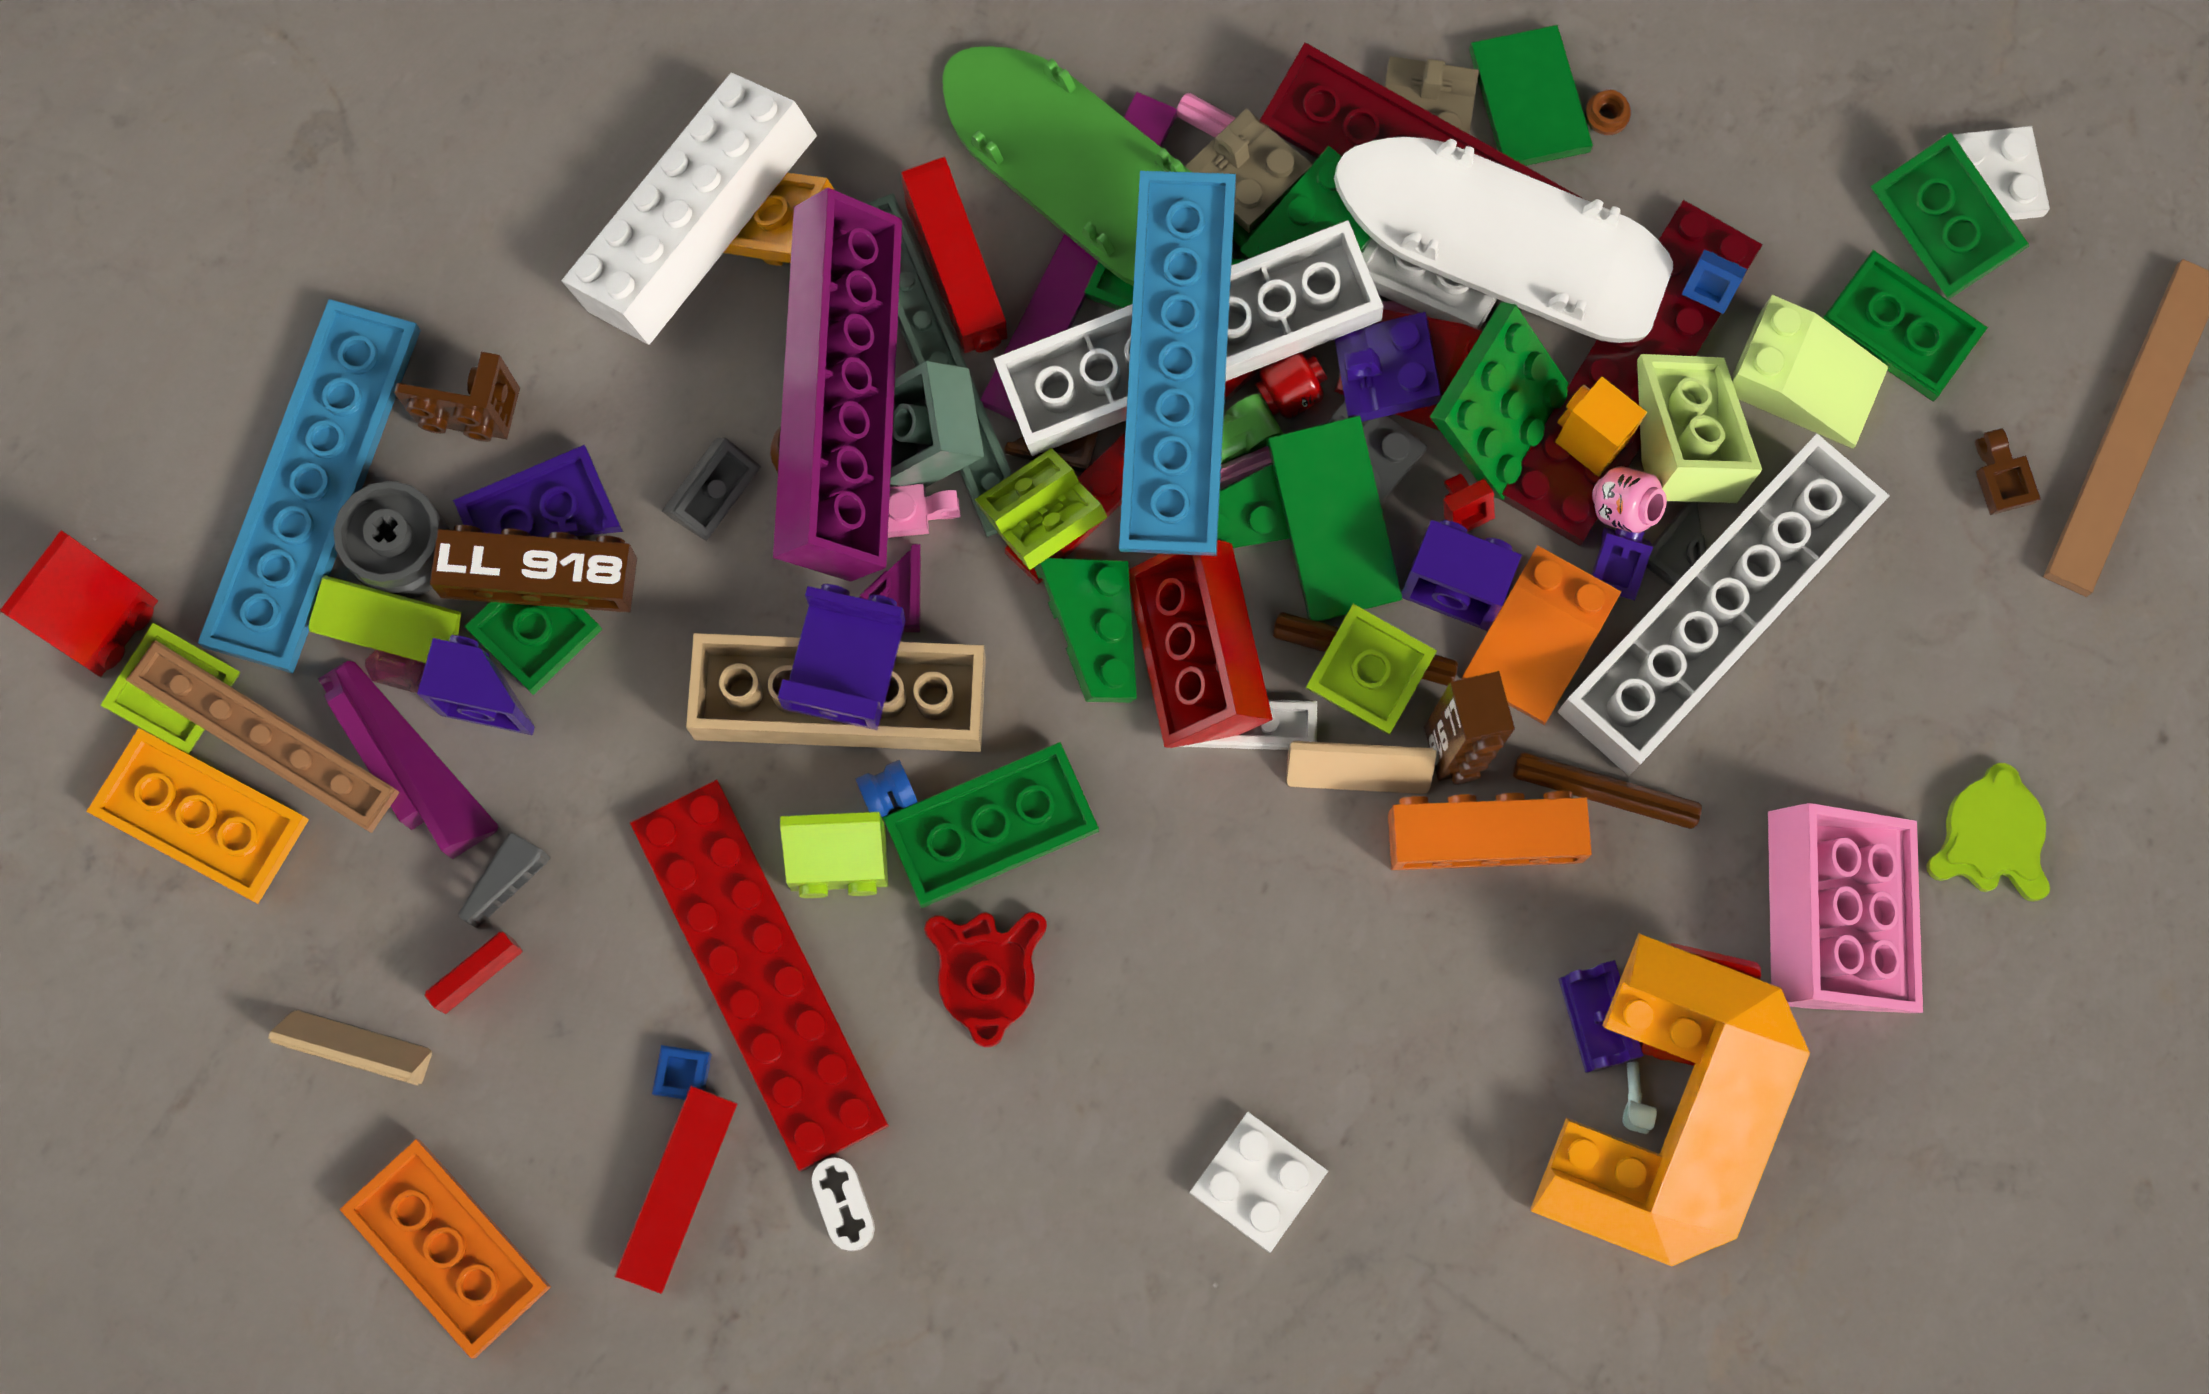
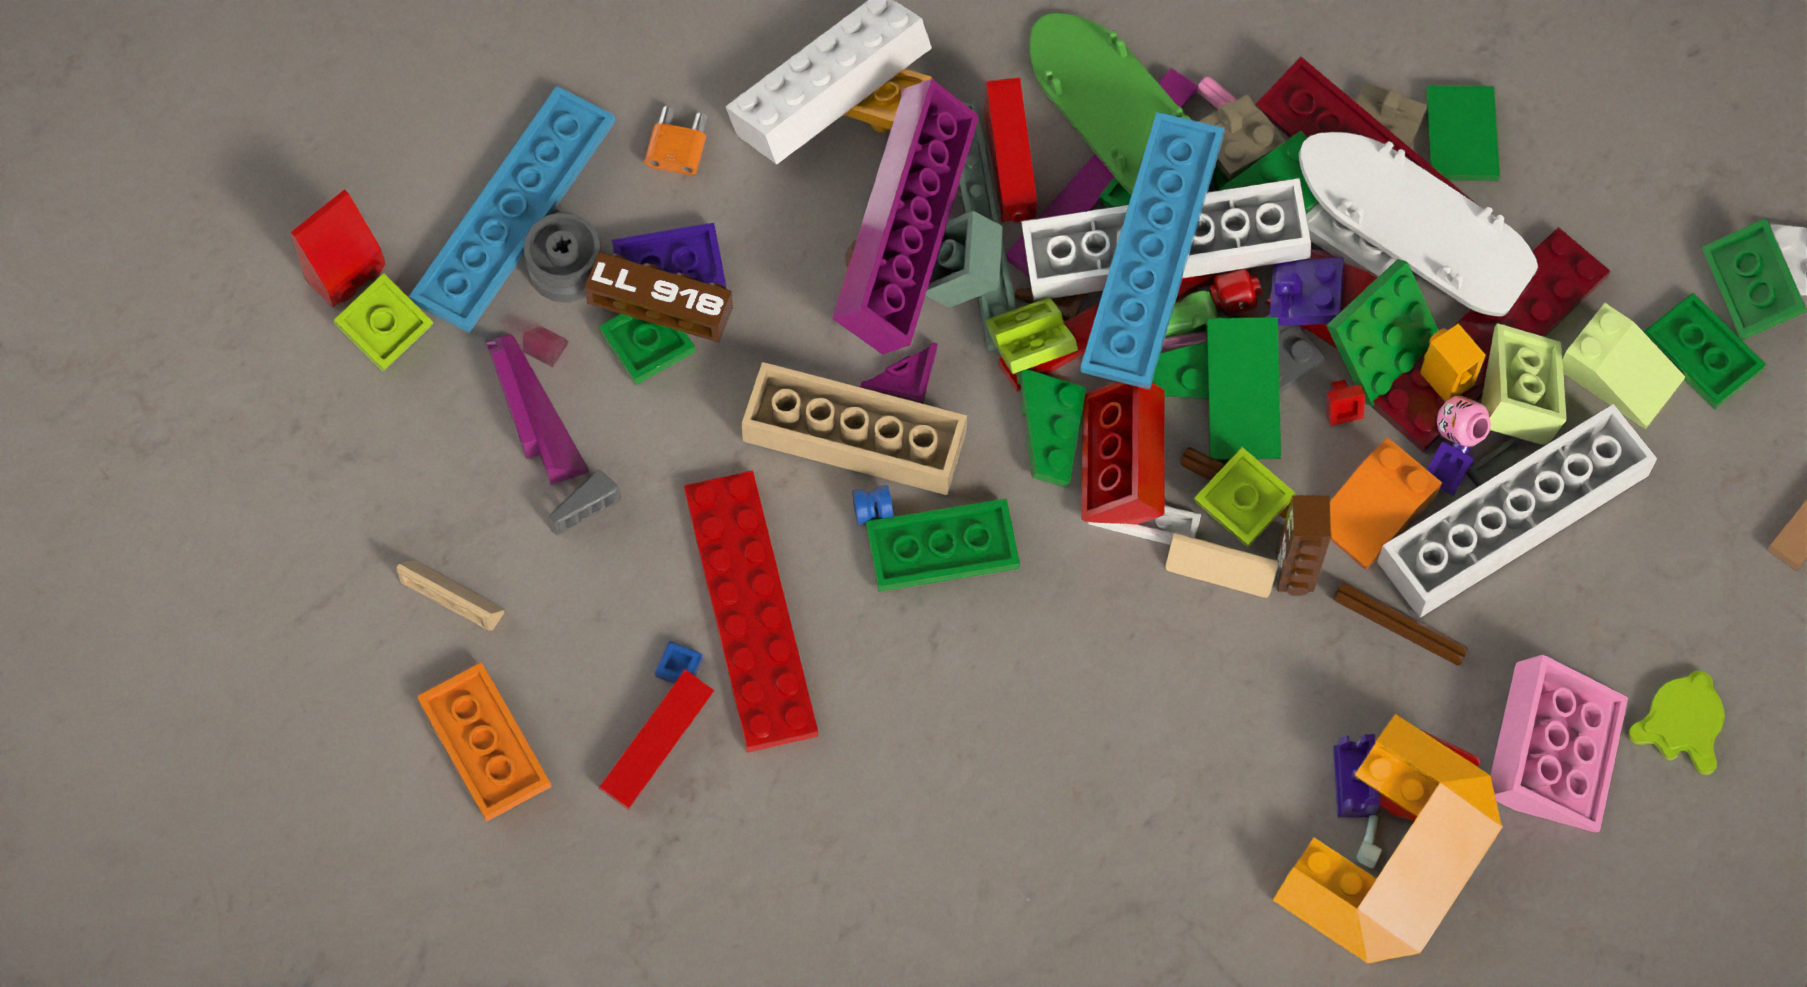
camera: 15 degrees right, 10 degrees down
(198, 815) = (380, 412): light orange plate -> none
(263, 736) = (442, 365): medium nougat tile -> none
(380, 619) = (544, 311): lime slope -> none
(469, 687) = (594, 368): dark purple slope -> none
(473, 972) = (548, 560): red tile -> none
(479, 416) = (643, 183): reddish brown bracket -> none
(517, 341) = (676, 147): none -> orange piece
(711, 488) = (797, 273): dark grey slope -> none
(832, 1209) = (781, 778): white beam -> none
(835, 853) = (826, 534): lime slope -> none
(844, 657) = (866, 399): dark purple panel -> none
(912, 509) = (937, 319): bright pink plate -> none
(986, 973) = (913, 647): red tile -> none
(1258, 1182) = (1077, 834): white plate -> none
(1461, 574) = (1325, 445): dark purple brick -> none
(1489, 832) = (1305, 631): orange brick -> none
(1610, 101) = (1520, 147): dark orange plate -> none
(1714, 281) = (1563, 284): blue tile -> none
(2005, 480) = (1752, 473): reddish brown plate -> none

